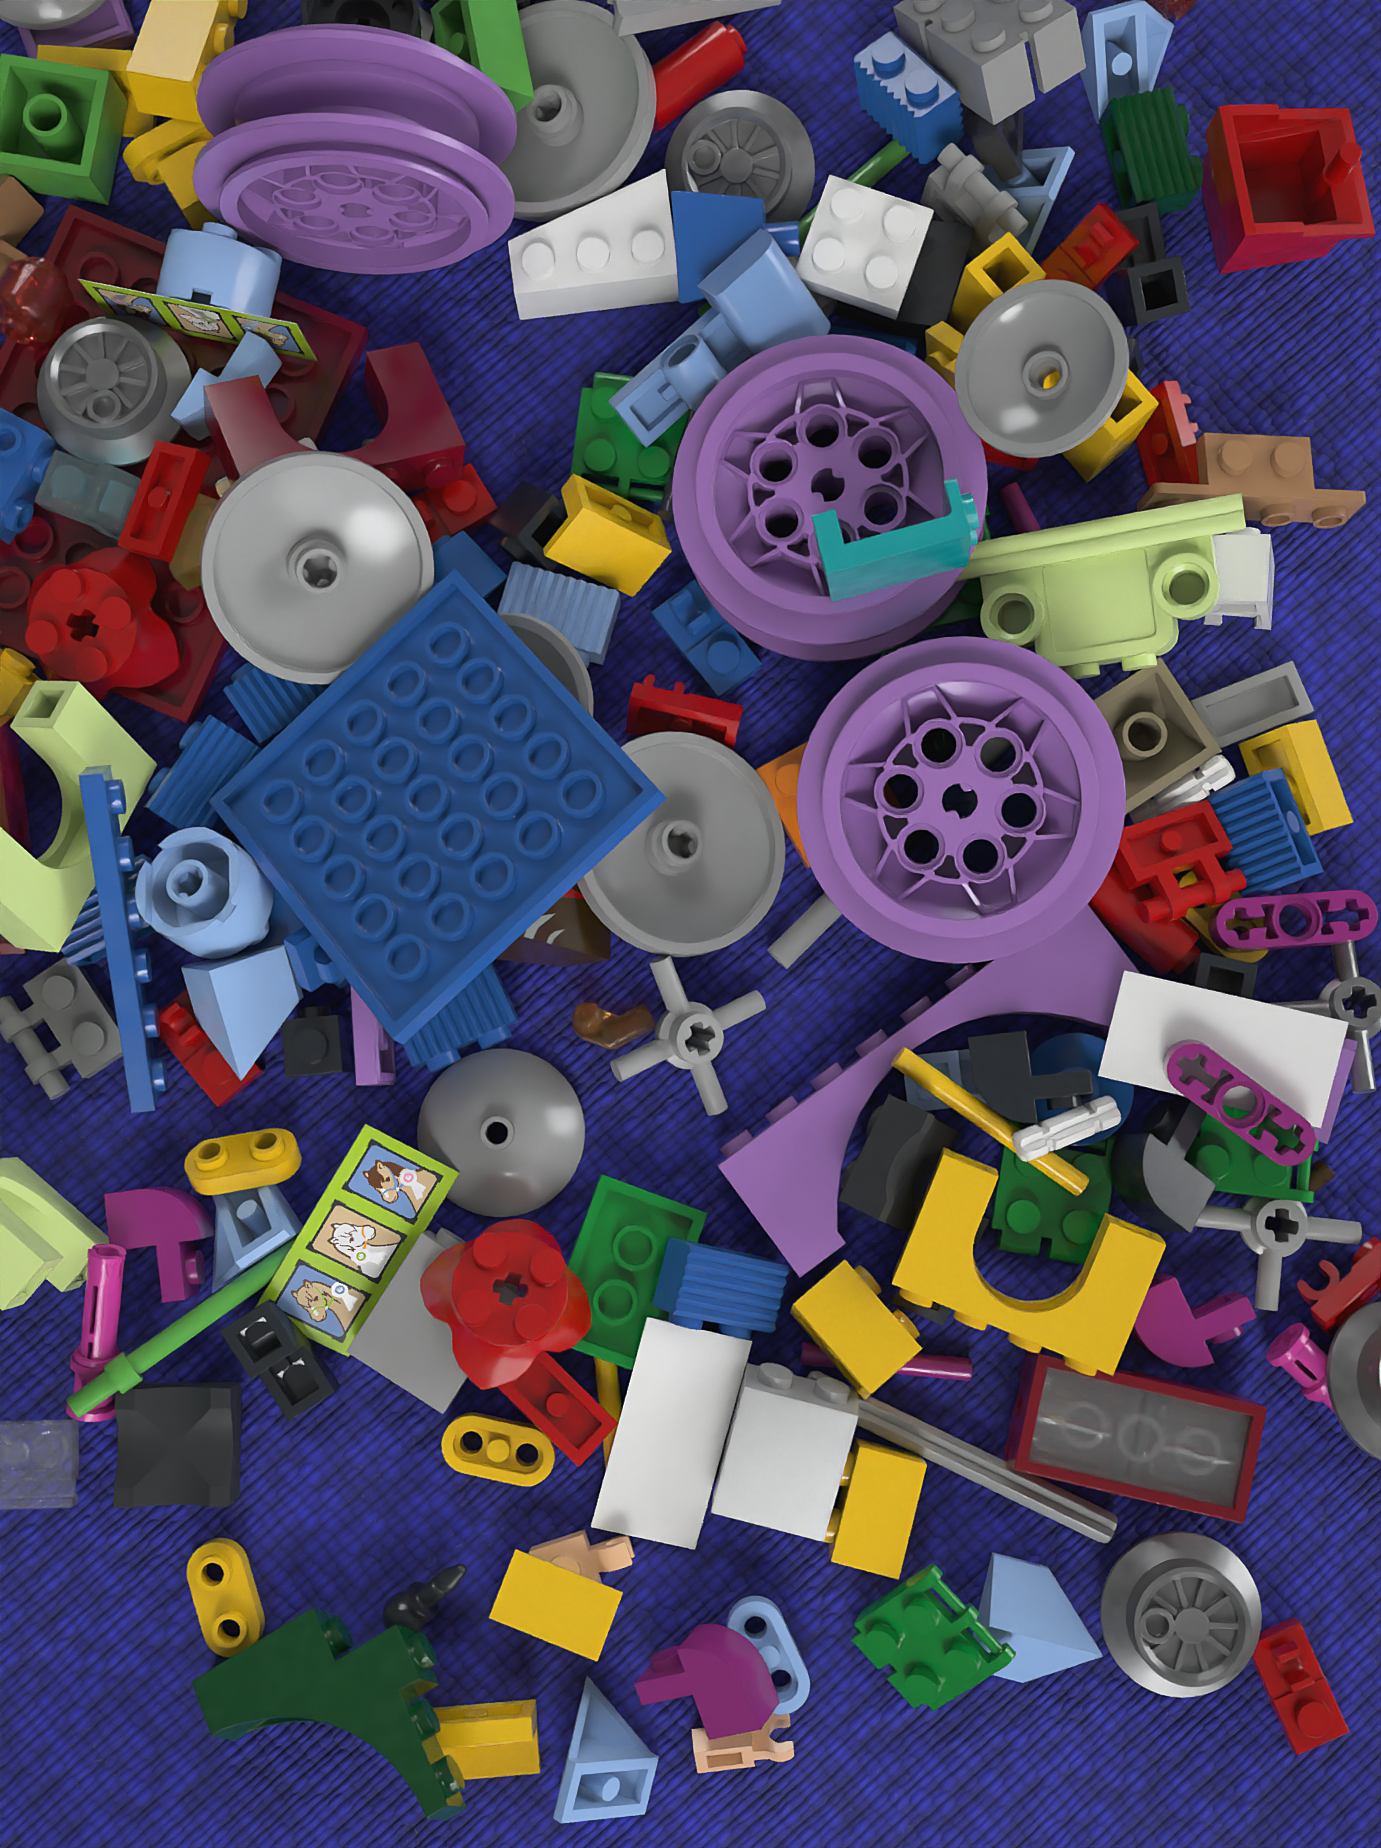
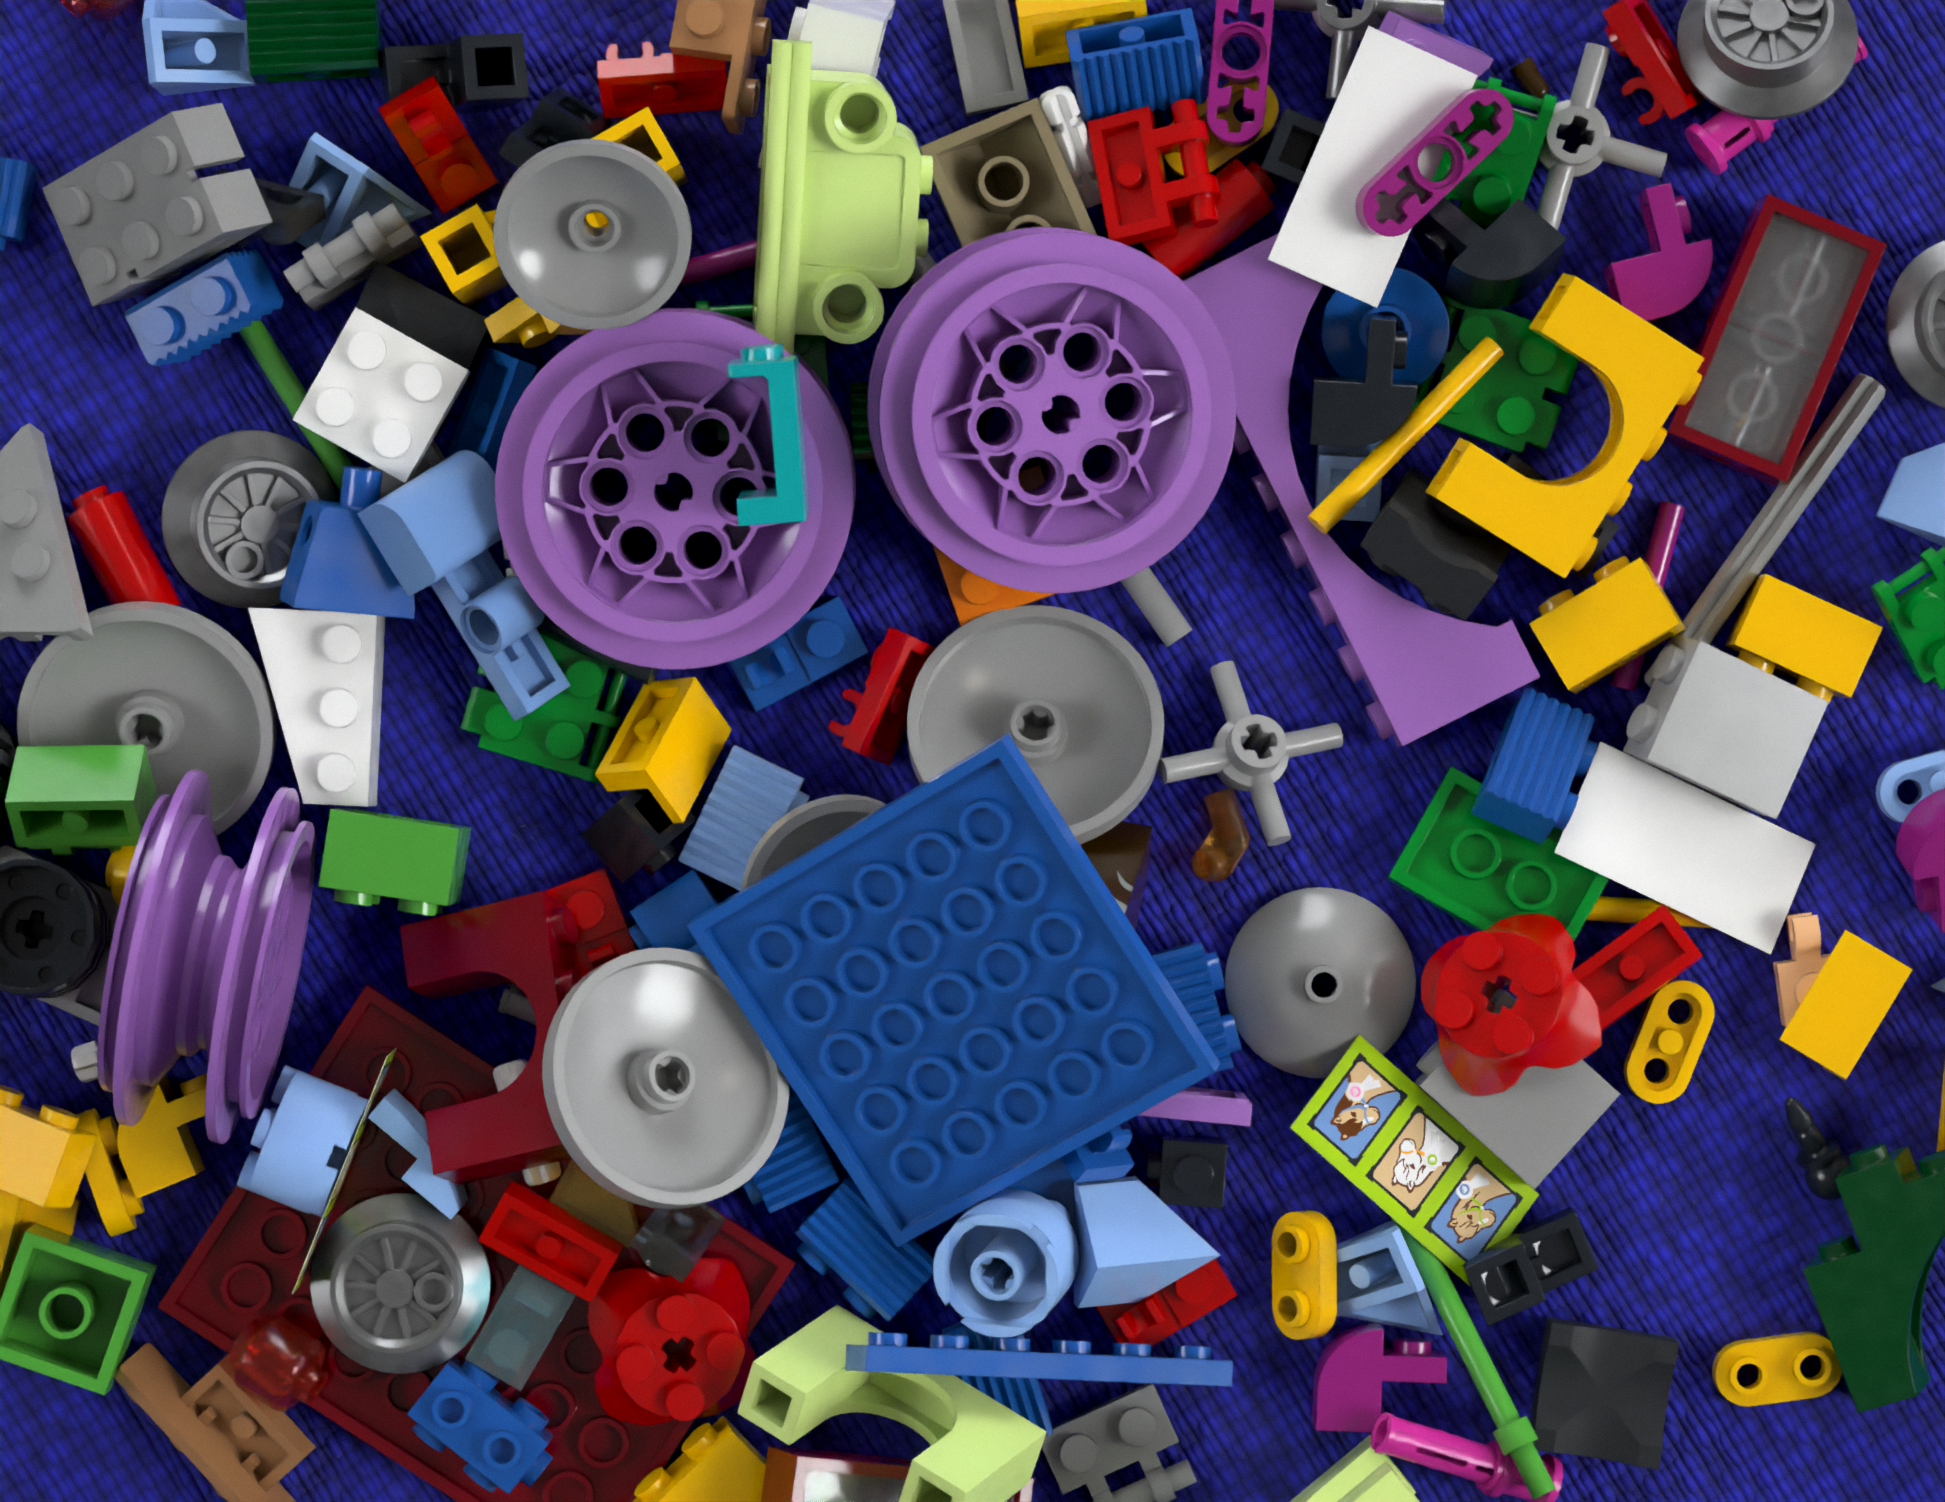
camera: 75 degrees left, 5 degrees up
(178, 603) = (677, 1238): none -> clear smoke plate
(473, 325) = (394, 858): none -> bright green brick
(1066, 1128) = (1429, 353): white axle -> none

